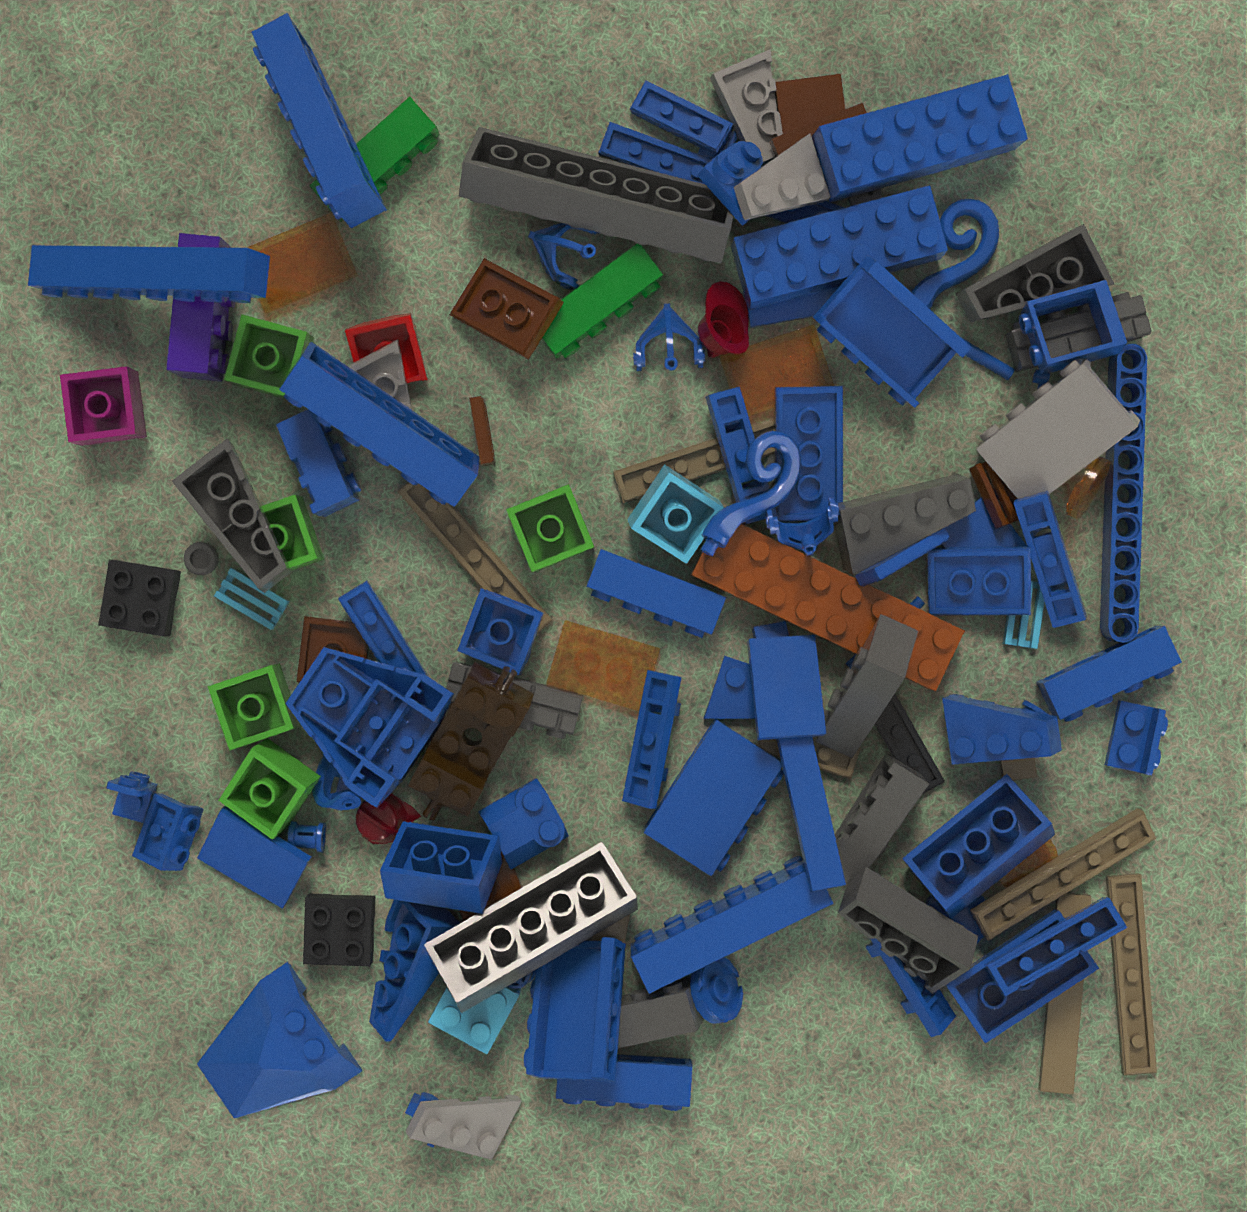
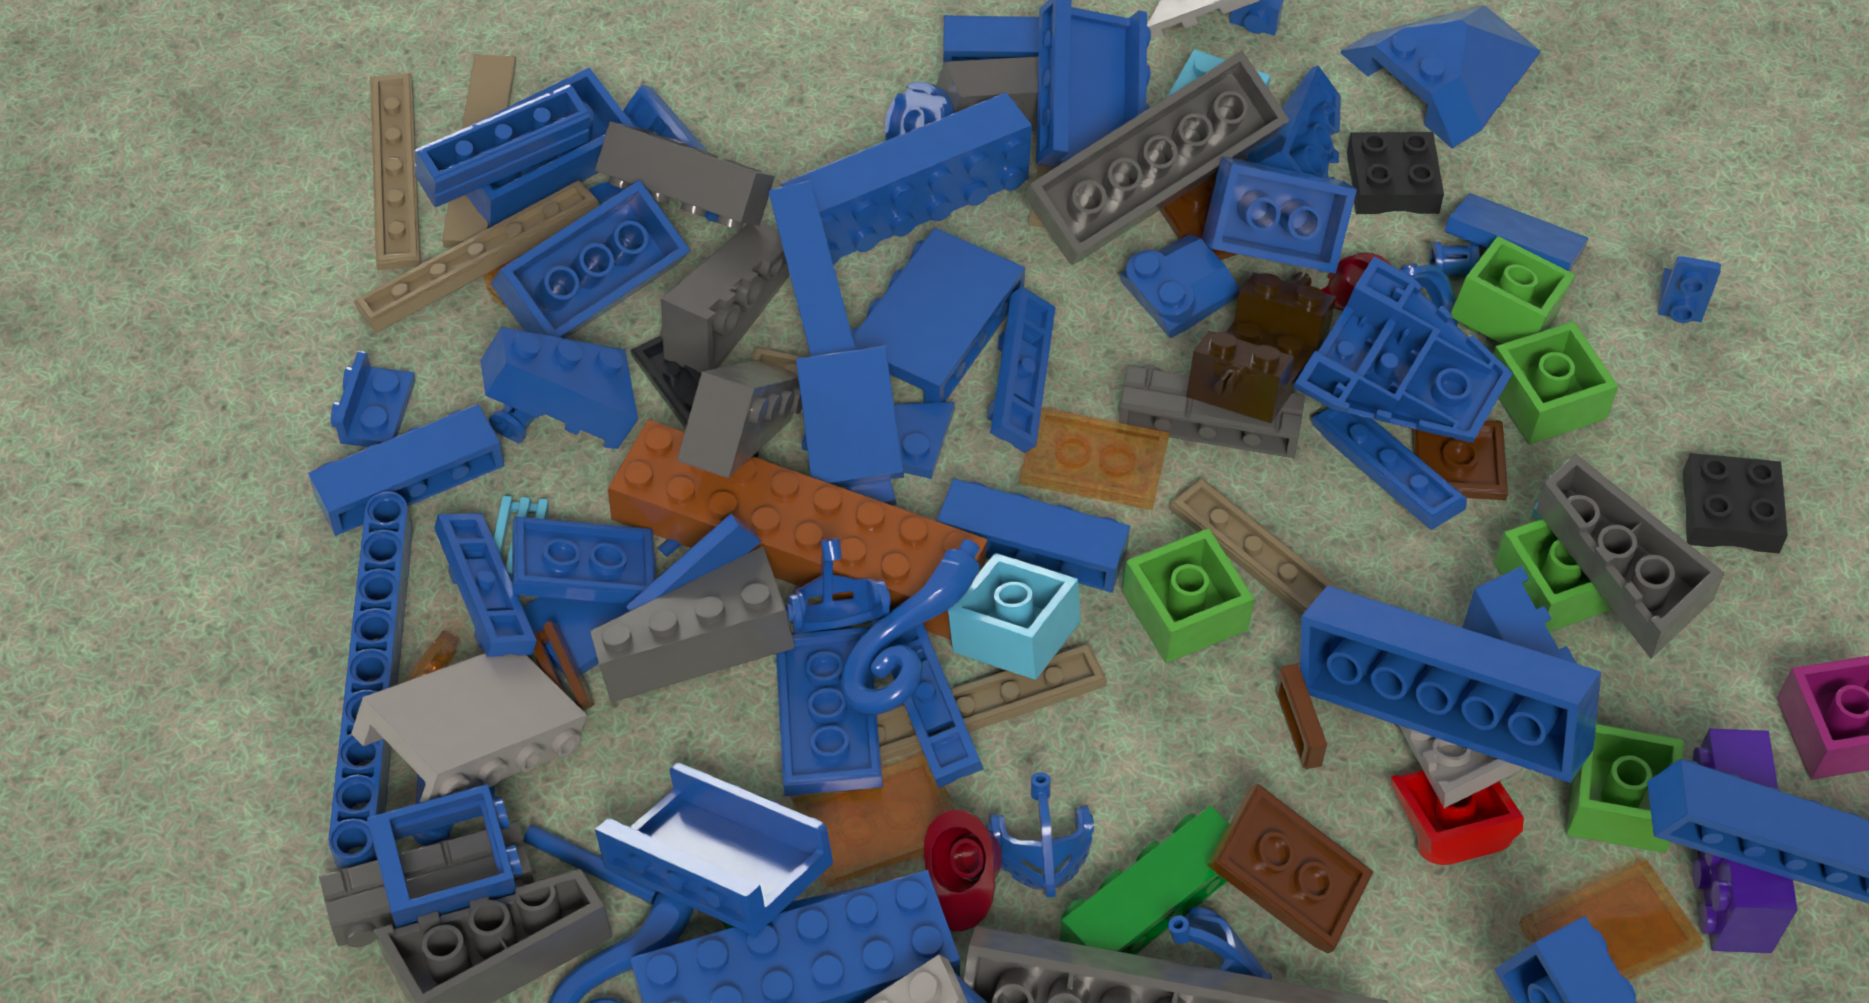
camera: 170 degrees right, 35 degrees down
(167, 833) = (1632, 257): blue bracket -> none
(500, 631) = (1239, 474): blue slope -> none

